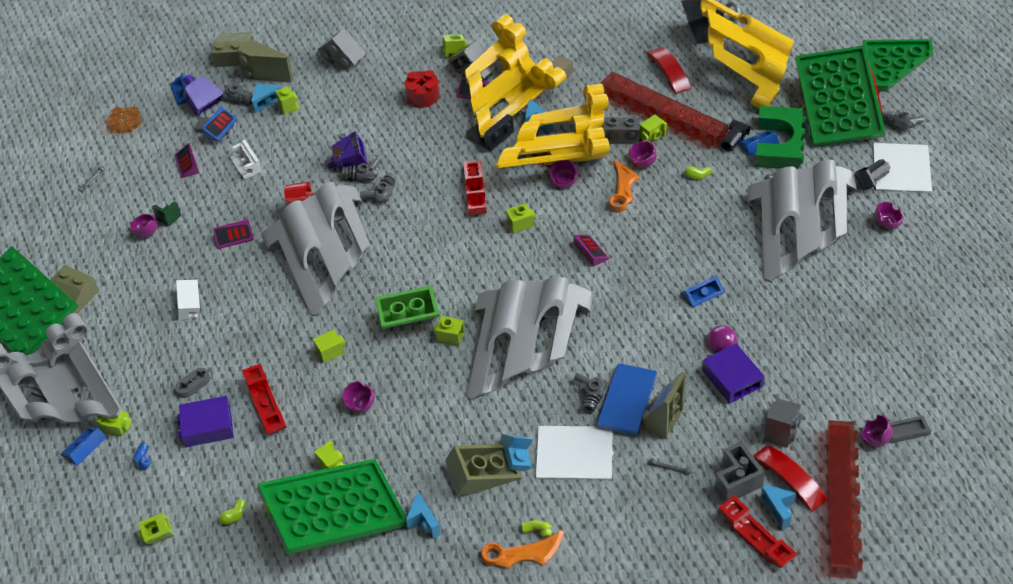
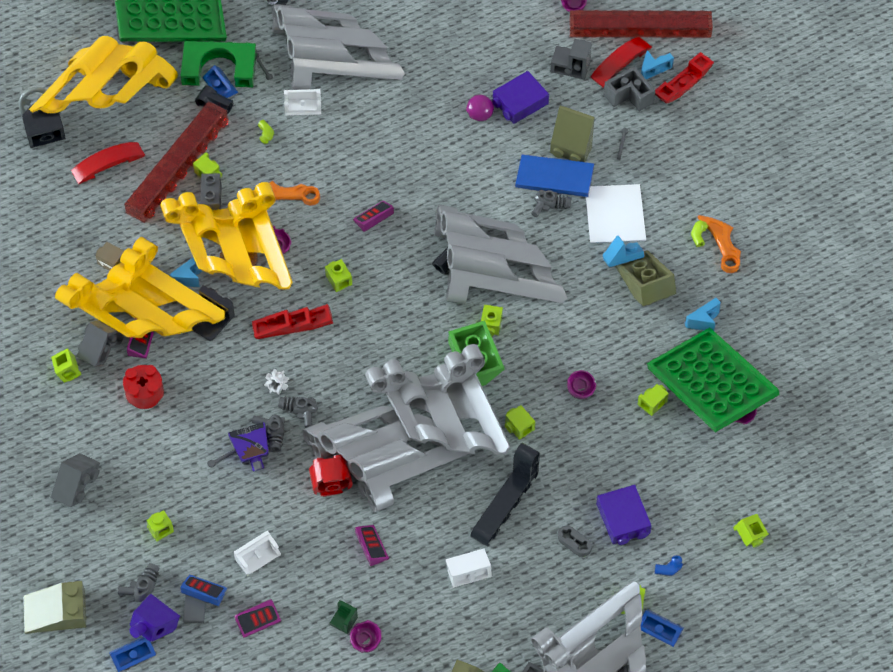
camera: 100 degrees left, 10 degrees up
(233, 515) = (720, 470): lime arm -> none
(263, 334) = (524, 471): none -> black beam
(263, 399) = (583, 474): red slope -> none
(264, 62) = (97, 561): olive slope -> none
(264, 96) = (151, 552): dark azure slope -> none
(350, 286) = (448, 396): none -> light grey panel
(410, 172) = (279, 377): none -> white gear
(642, 154) = (246, 170): magenta hair -> none
(703, 291) = (420, 125): blue slope -> none
(730, 198) = (302, 102): none -> white hinge

